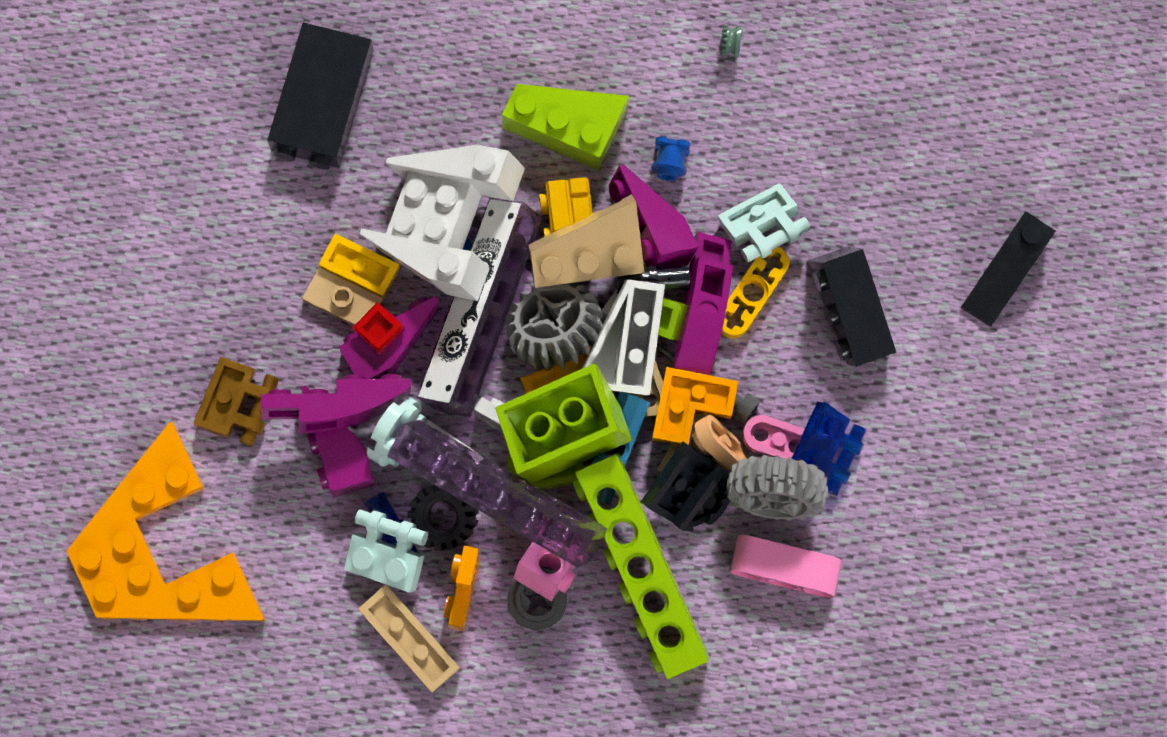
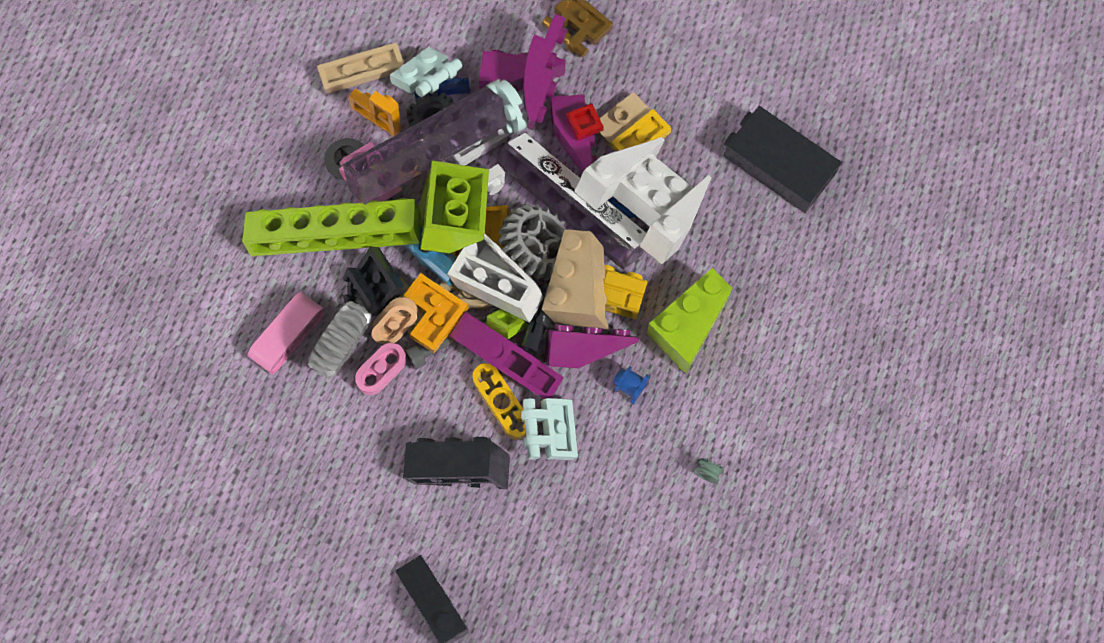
camera: 115 degrees right, 5 degrees down
(821, 440) = (361, 392): clear blue plate -> none

